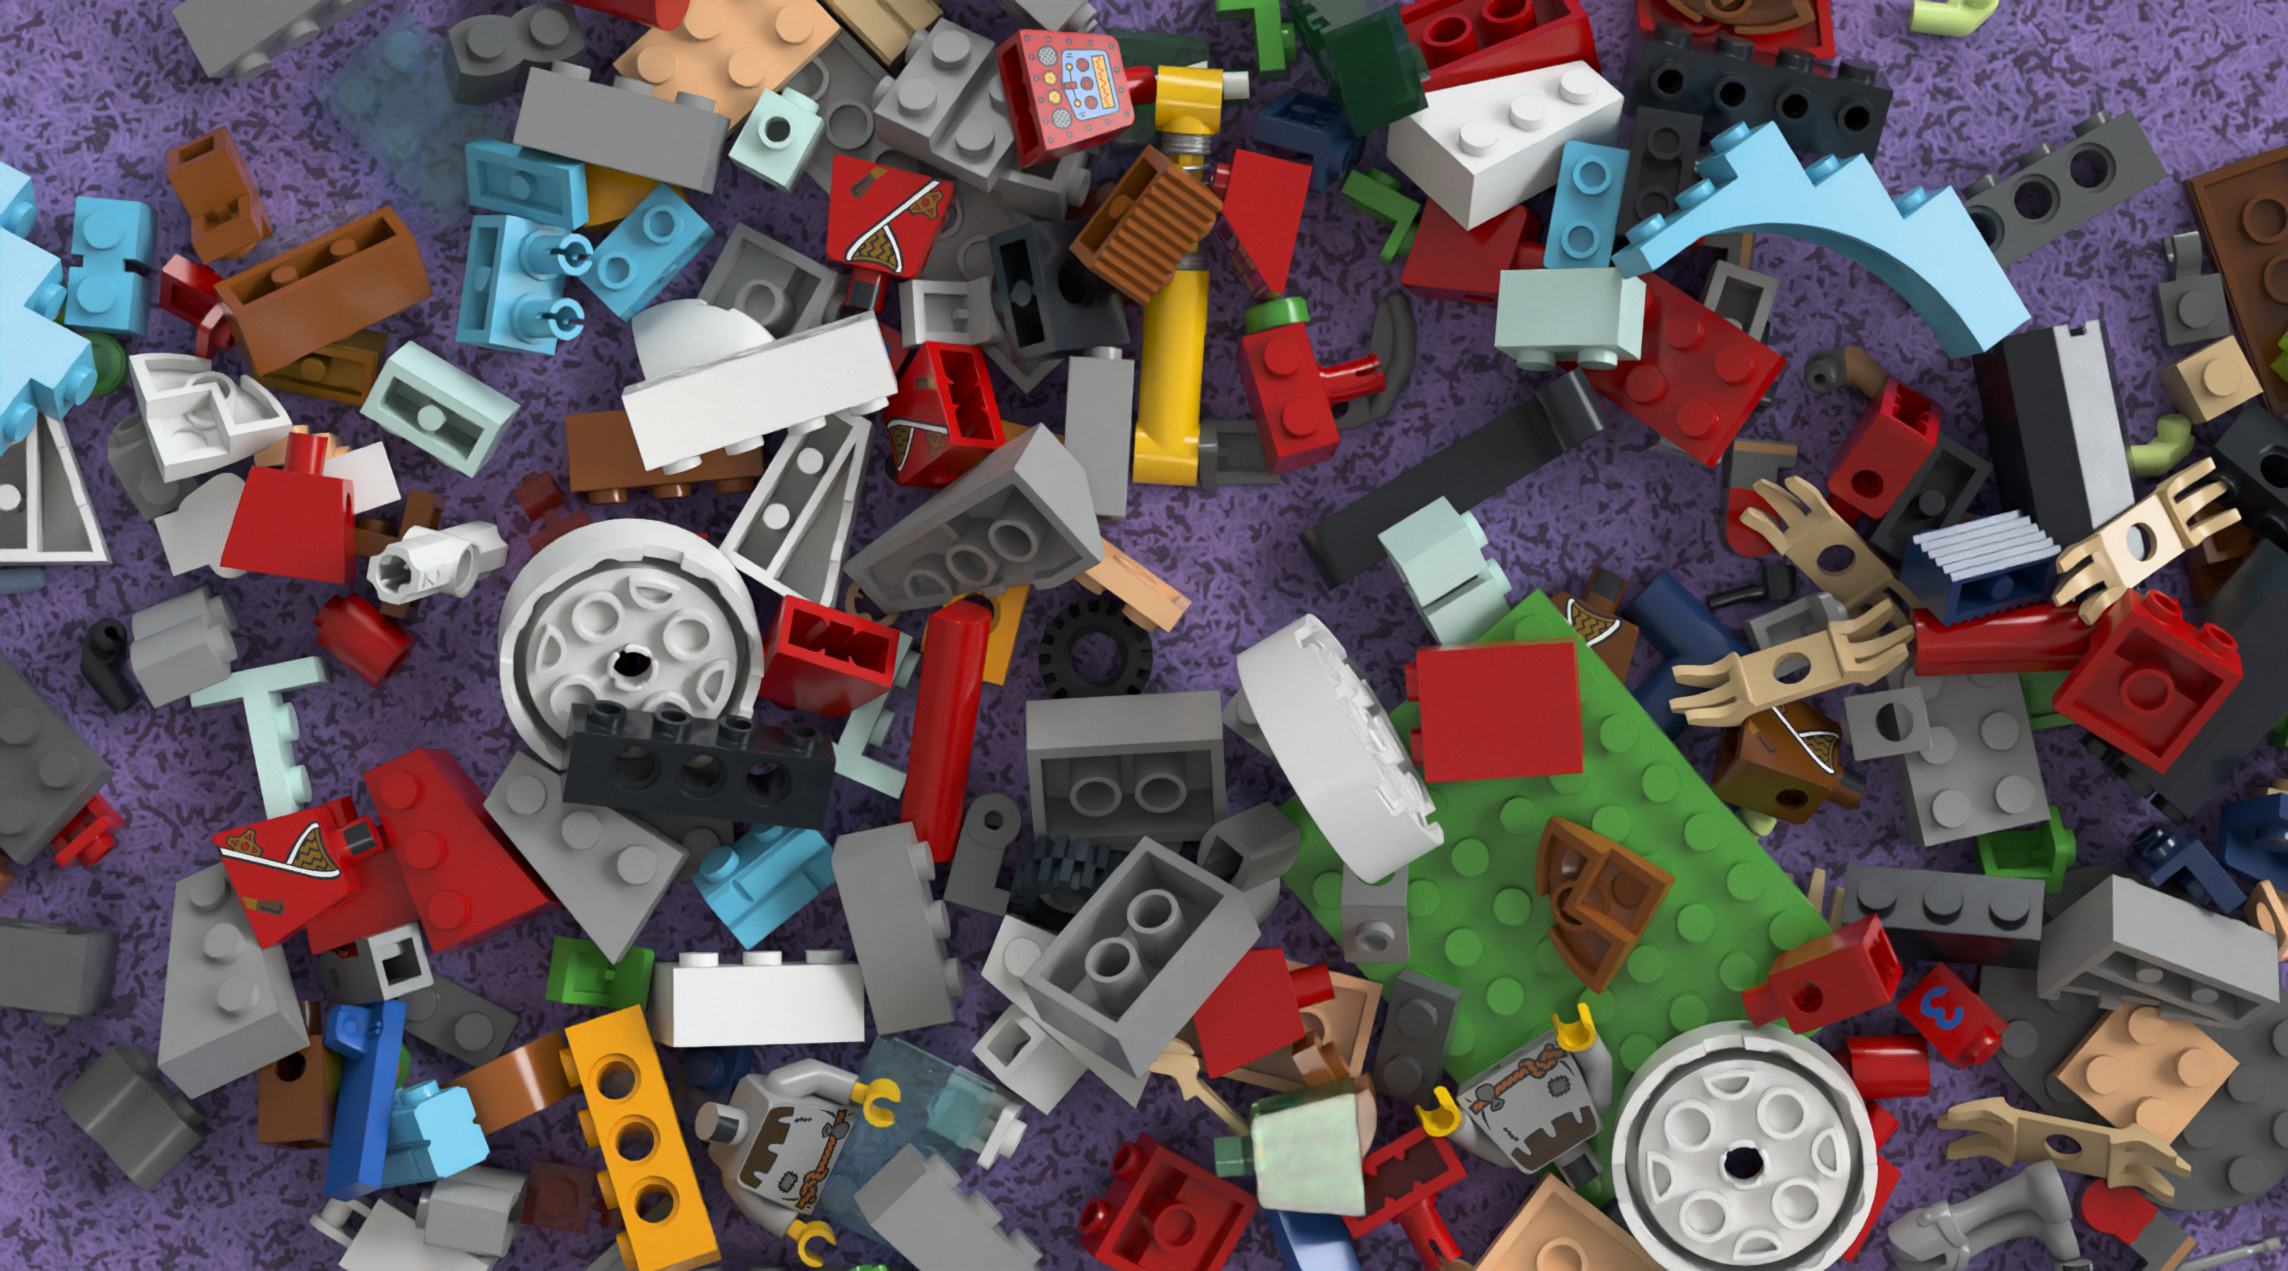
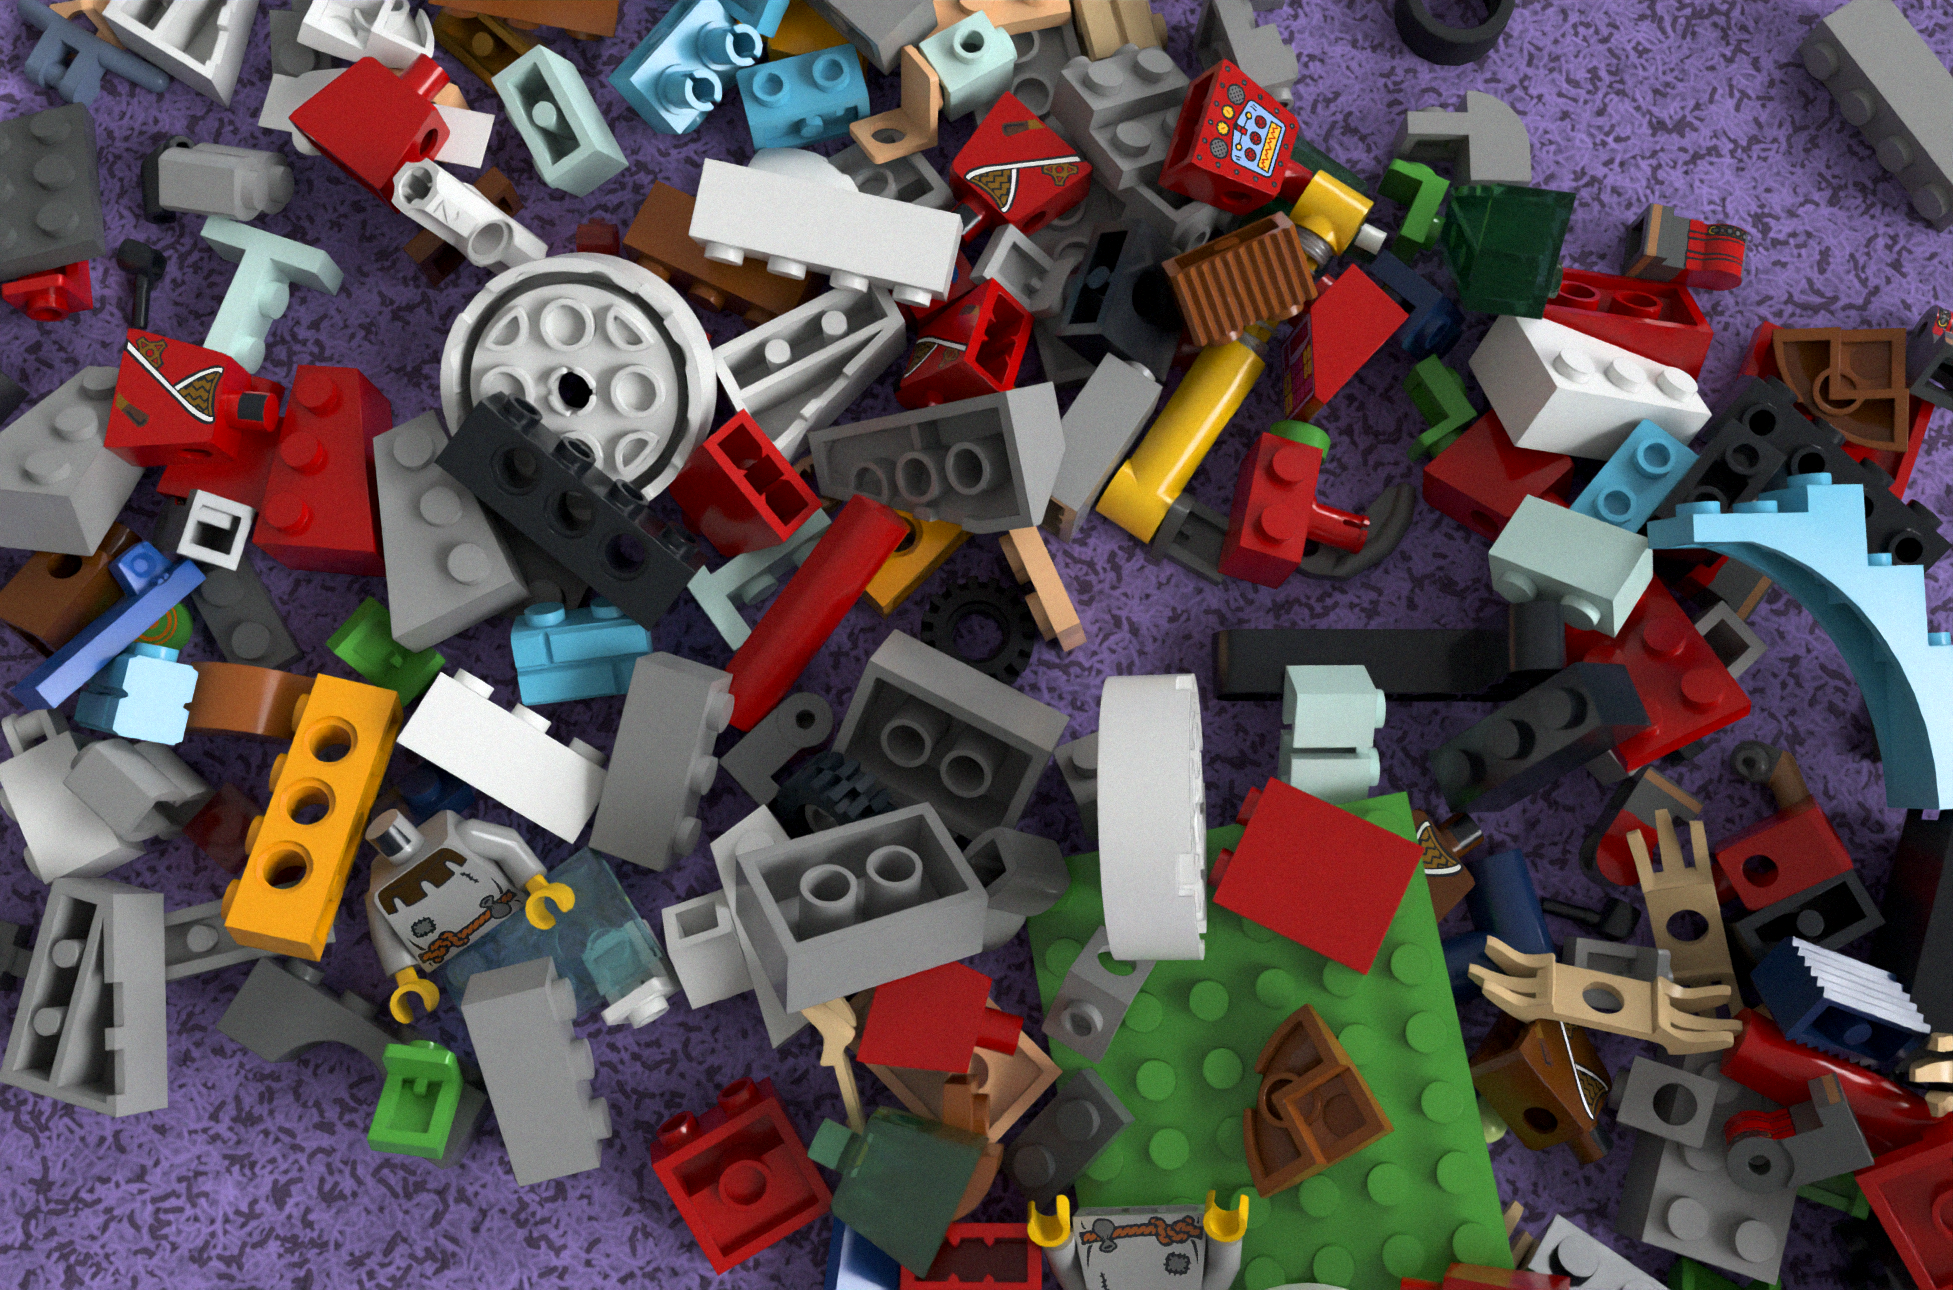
camera: 30 degrees right, 10 degrees down
(146, 755) = (147, 266): none -> black hand
(363, 638) = (380, 270): red brick -> none
(756, 211) = (915, 118): none -> light nougat bracket
(1623, 480) = (1539, 737): none -> black brick
(2000, 702) = (1796, 1142): none -> dark grey leg

